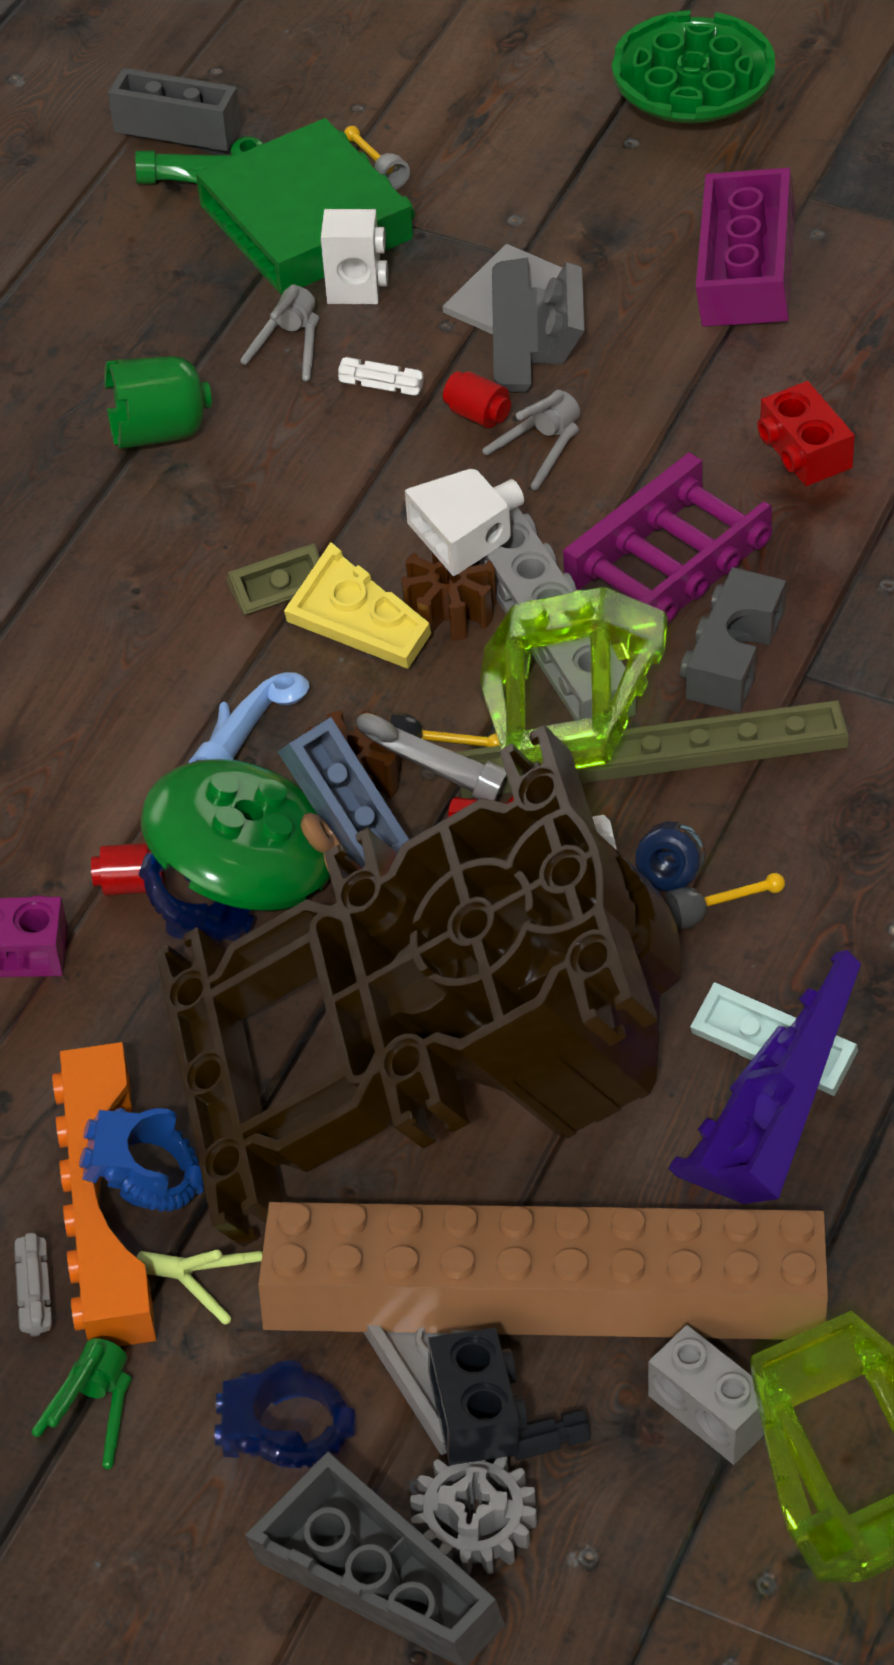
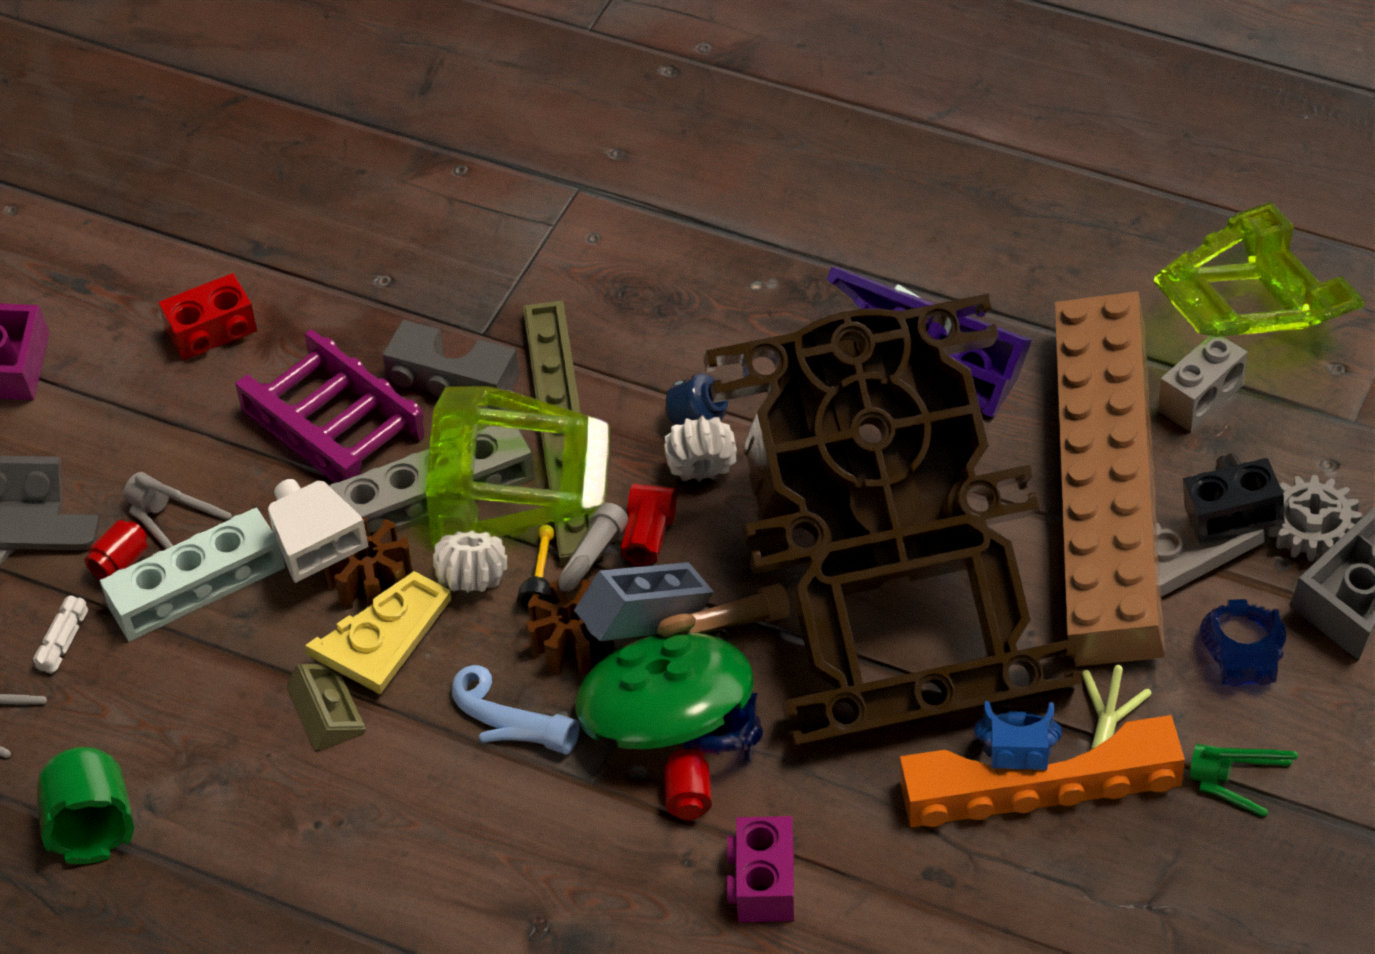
camera: 90 degrees left, 0 degrees up
(32, 1284) = (1129, 822): light grey axle -> none
(429, 437) = (192, 574): none -> light aqua brick
(439, 666) = (469, 561): none -> white gear
(690, 906) = (735, 412): hinge -> none

